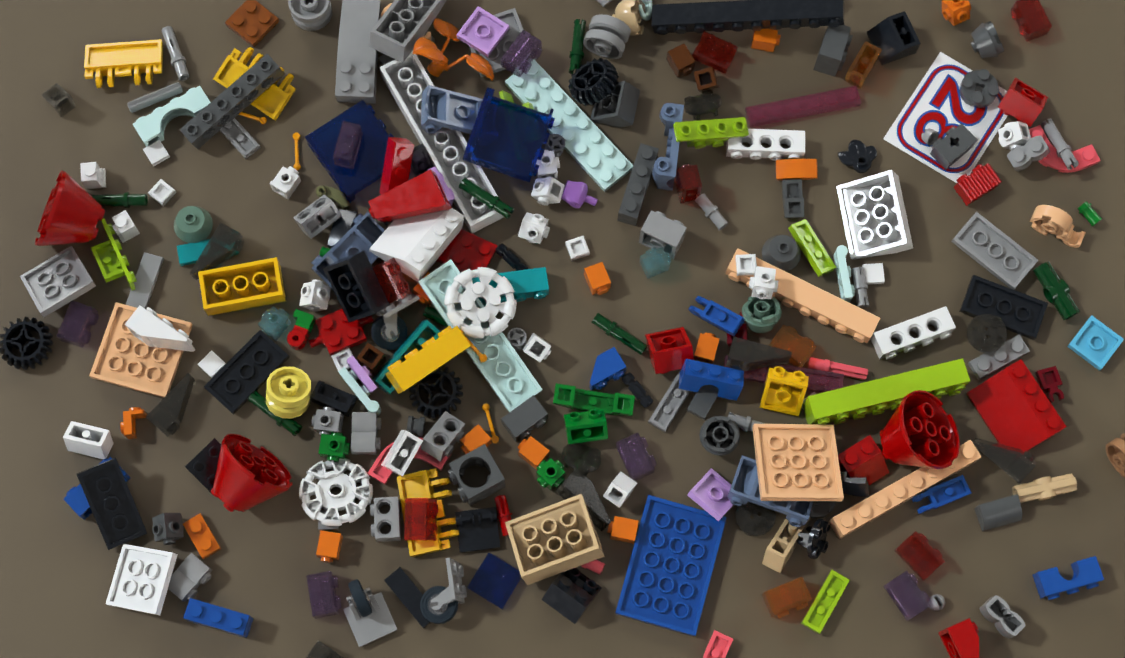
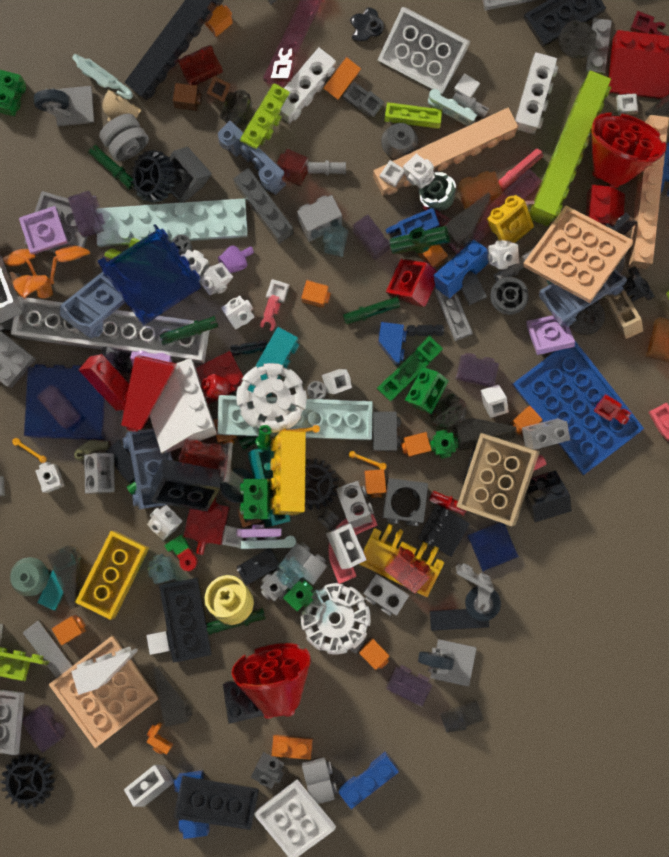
camera: 50 degrees left, 10 degrees up
(172, 286) = (69, 629): none -> orange brick
(347, 421) = (290, 572): none -> clear light blue brick
(387, 349) = (256, 498): none -> green brick
(440, 321) = (263, 440): none -> green pin
(457, 252) = (215, 385): none -> red head
(556, 252) = (271, 309): none -> coral plate
(623, 549) = (545, 433): none -> light grey brick
(680, 288) = (371, 237): none -> clear purple brick
(687, 591) = (611, 409): none -> red plate
(706, 326) = (419, 240): none -> dark green piece
(750, 404) = (503, 254): none -> white brick
(764, 117) = (284, 68): none -> plate
(968, 417) = (627, 104): none -> white tile

